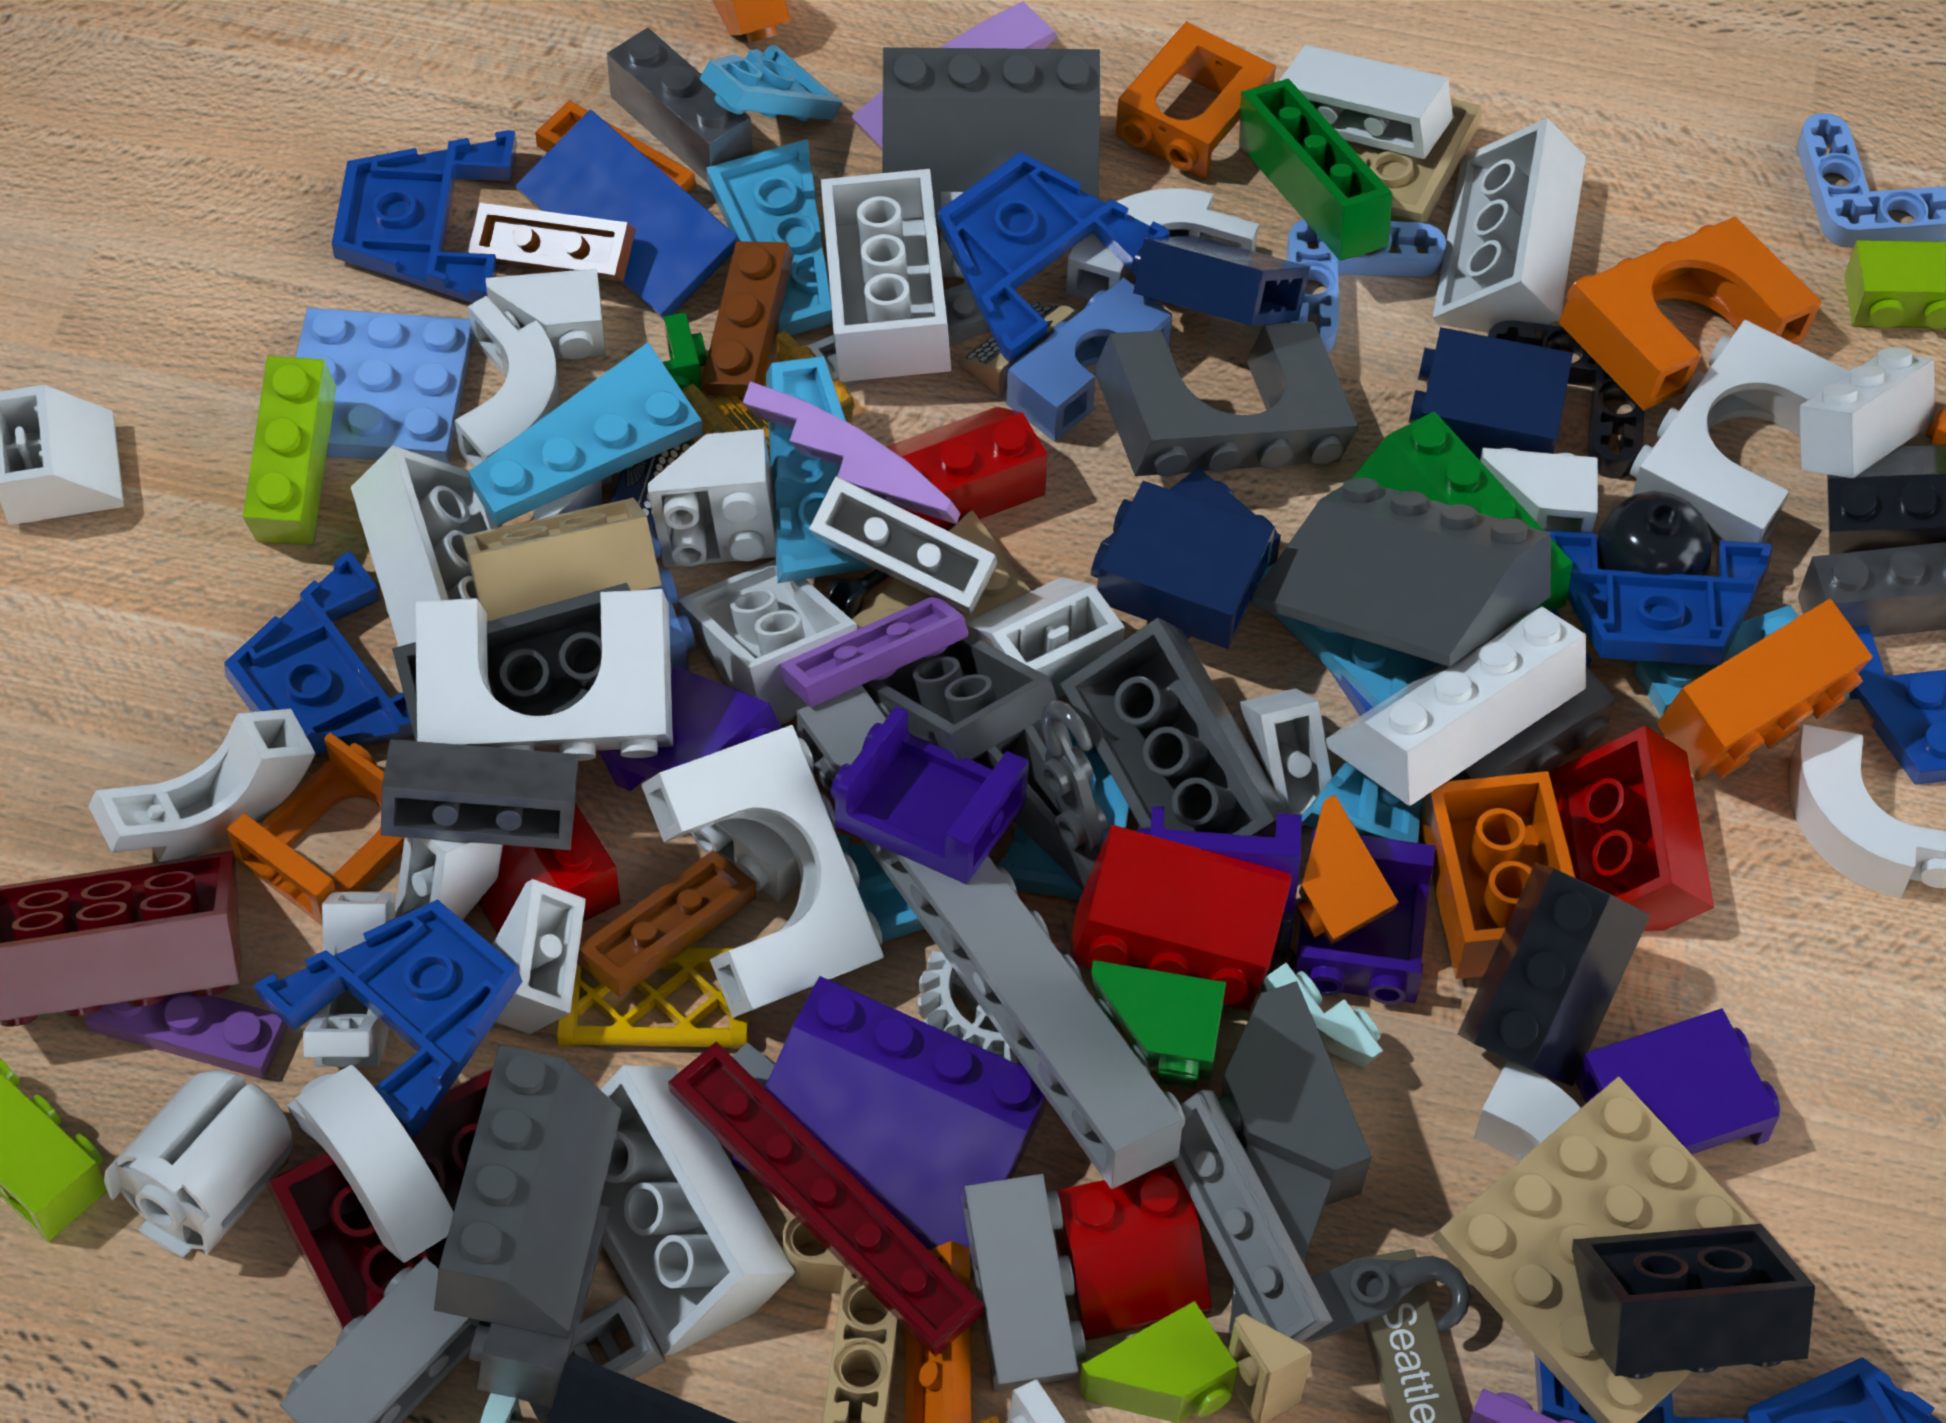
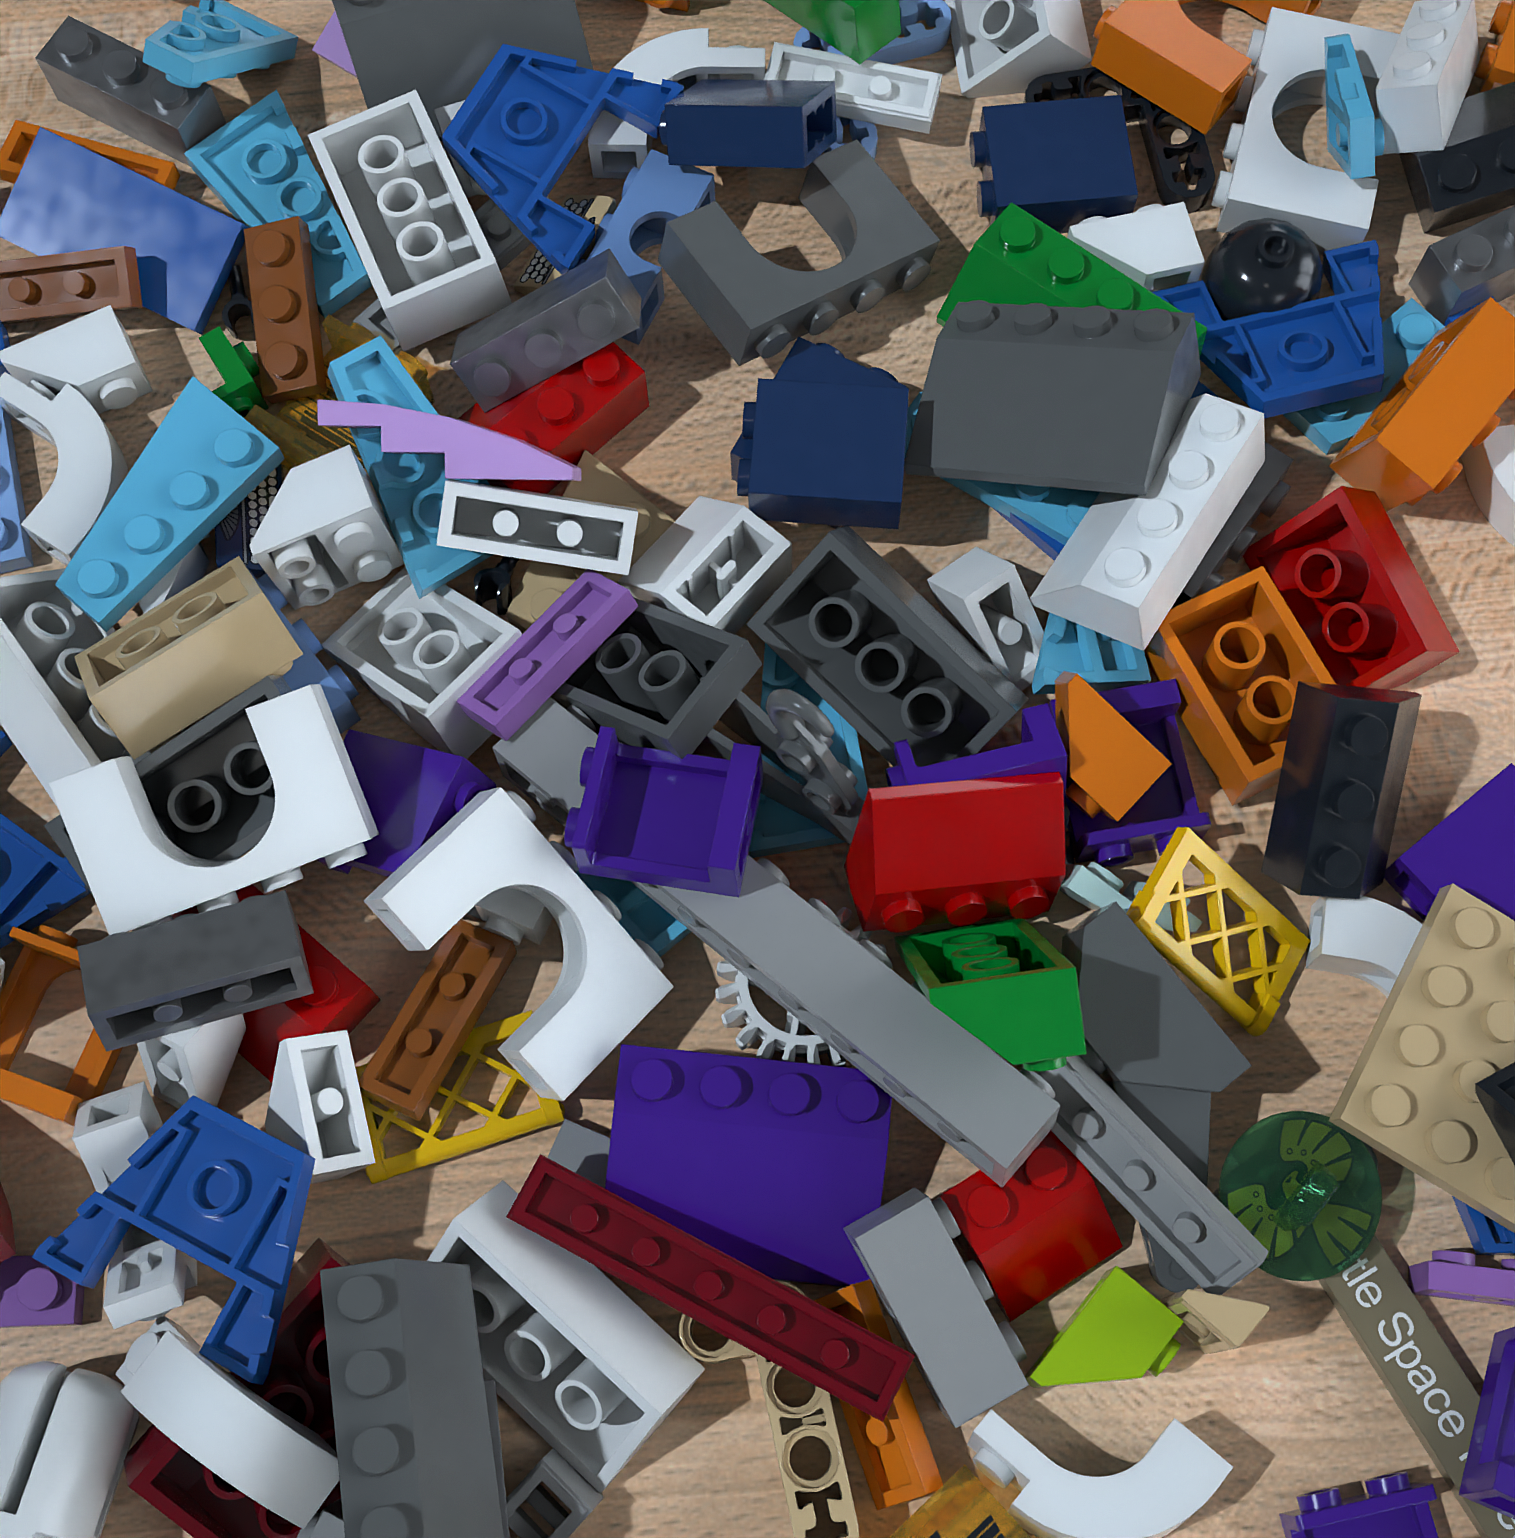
camera: 15 degrees left, 15 degrees up
(708, 305) = (239, 303): none -> black hand
(972, 395) = (547, 331): none -> flat silver brick
(1340, 285) = (864, 91): none -> white tile
(1388, 1295) = (1303, 1194): none -> clear green shield
(1439, 1064) = (1268, 977): none -> yellow window
(1780, 437) = (1352, 130): none -> medium azure wing

